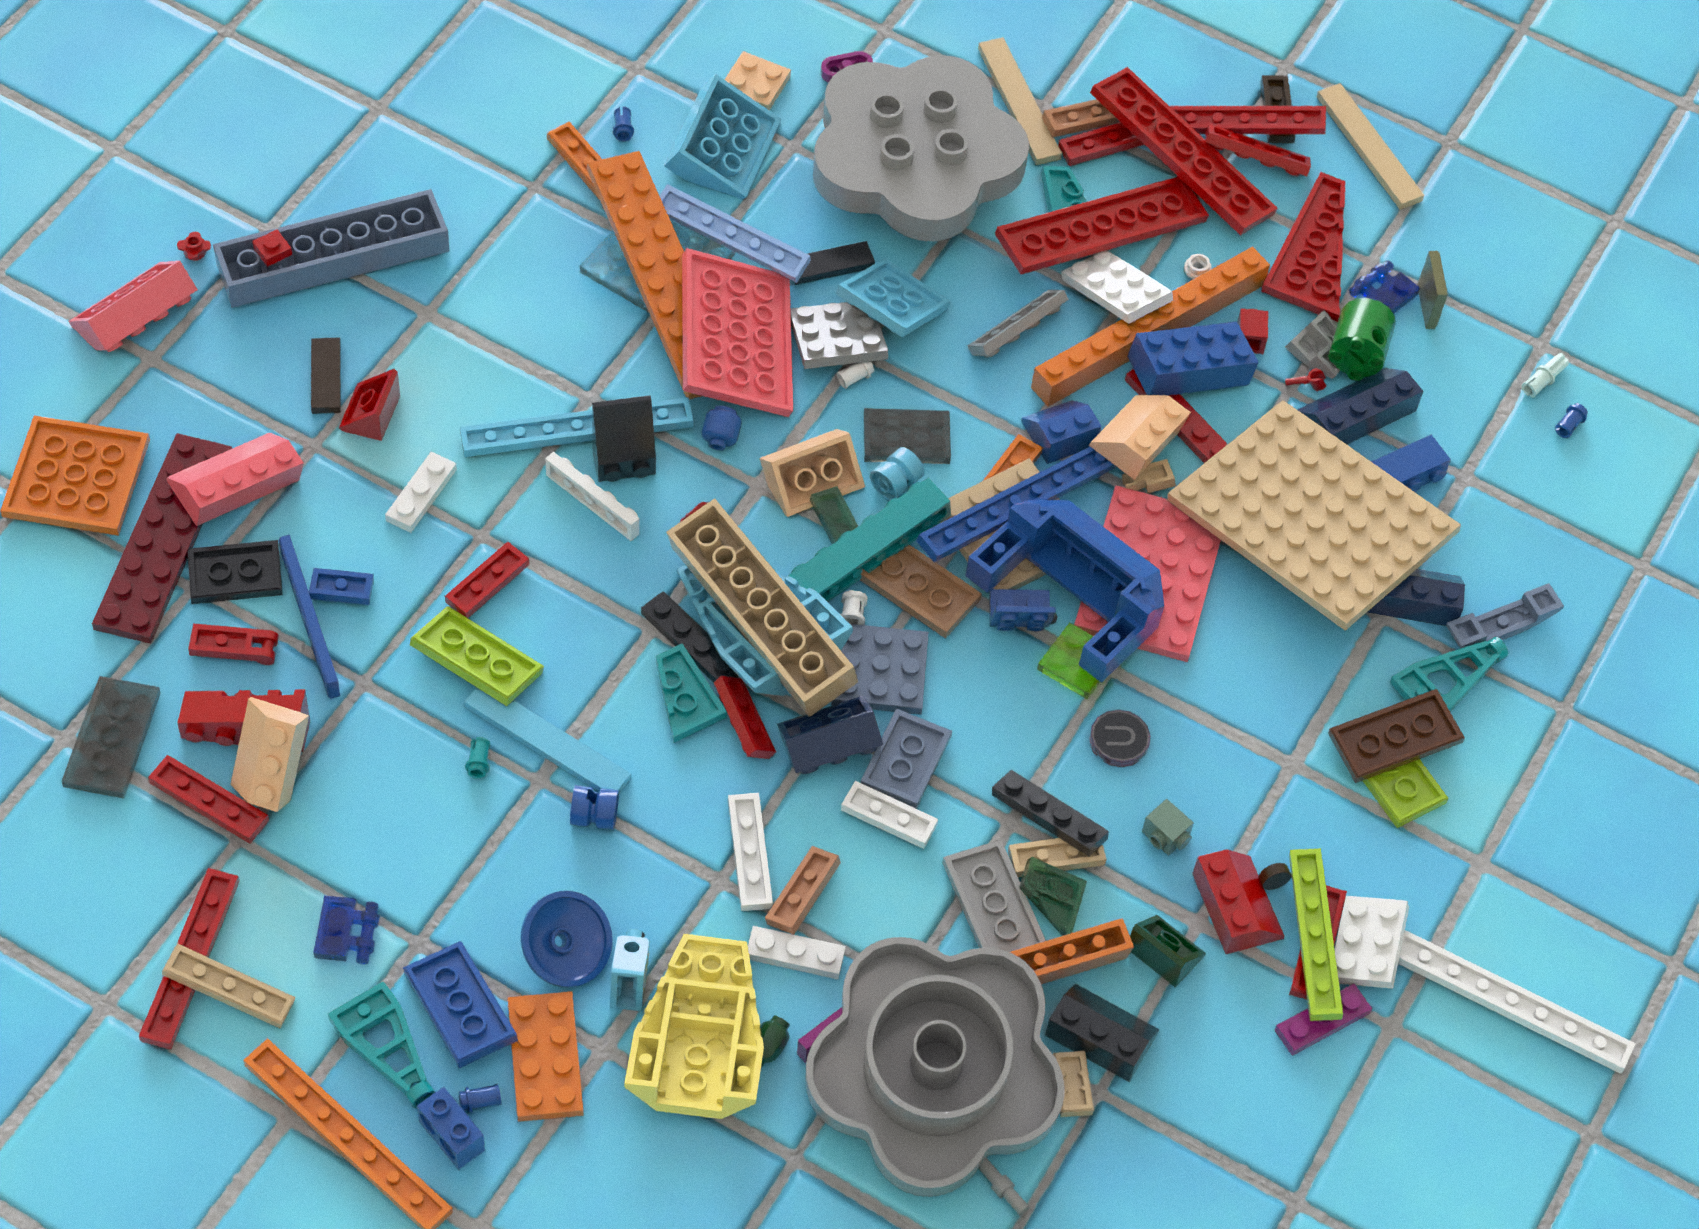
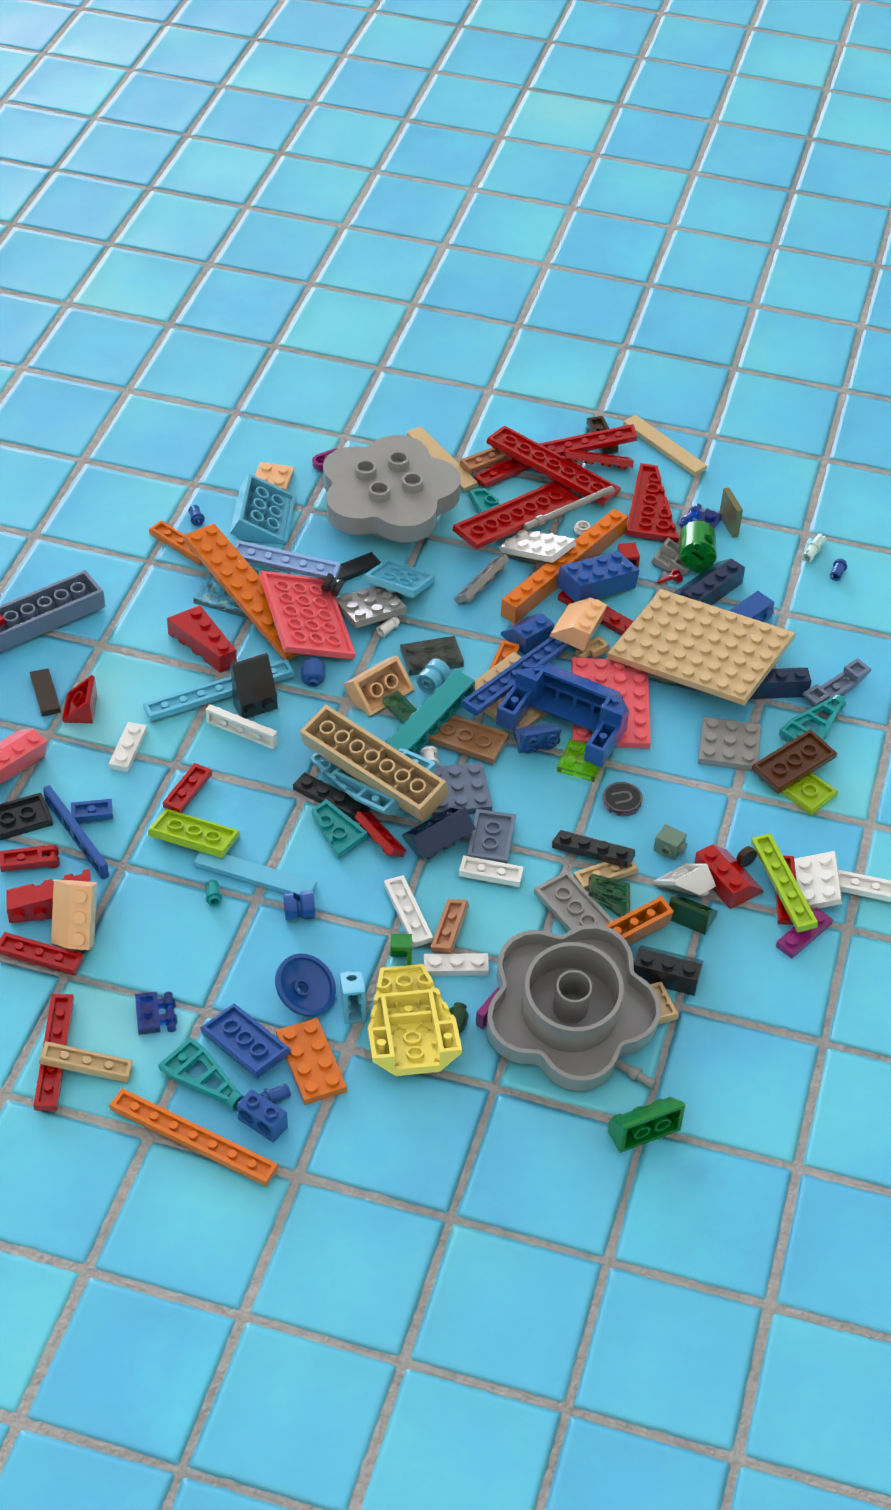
camera: 10 degrees left, 10 degrees down
(574, 331) = (203, 637): none -> red wedge
(723, 906) = (401, 946): none -> green panel
(789, 289) = (332, 584): none -> black wheel
(1136, 242) = (542, 519): none -> light grey bar
(1175, 893) = (688, 879): none -> white slope
(1309, 681) = (729, 743): none -> light grey plate

